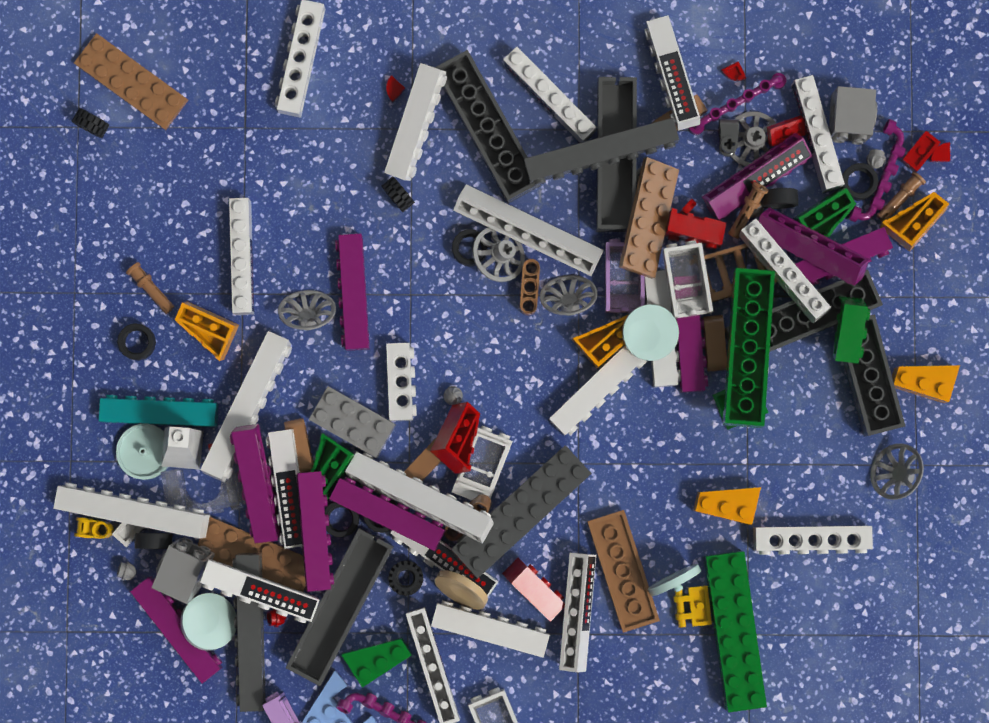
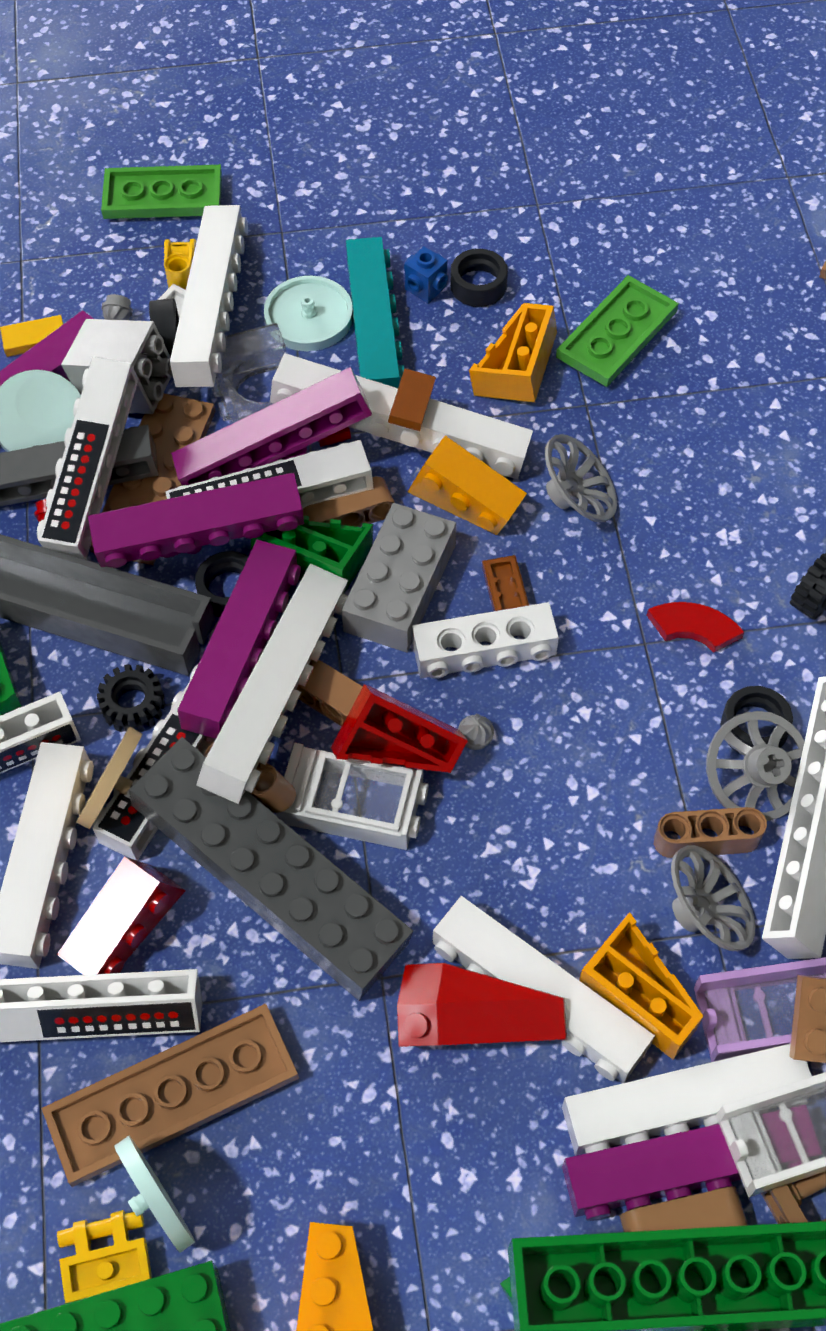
camera: 85 degrees right, 25 degrees down
(26, 536) = (160, 191): none -> bright green plate
(90, 123) = (800, 175): black tyre -> none
(134, 625) = (23, 336): none -> yellow tile
(137, 374) = (425, 274): none -> blue brick
(145, 281) = (575, 276): medium nougat pin -> none
(182, 448) = (321, 322): white slope -> none
(192, 264) = (617, 330): none -> bright green plate
(241, 256) = (647, 386): white brick -> none
(243, 398) = (412, 399): none -> dark orange tile
(300, 376) = (466, 487): none -> light orange wedge
(353, 292) = (628, 550): magenta brick -> none
(367, 364) = (504, 583): none -> dark orange plate
(403, 265) = (696, 623): none -> red tile
(607, 425) = (466, 1007): none -> red wedge
(650, 332) = (677, 1063): light aqua piece -> none

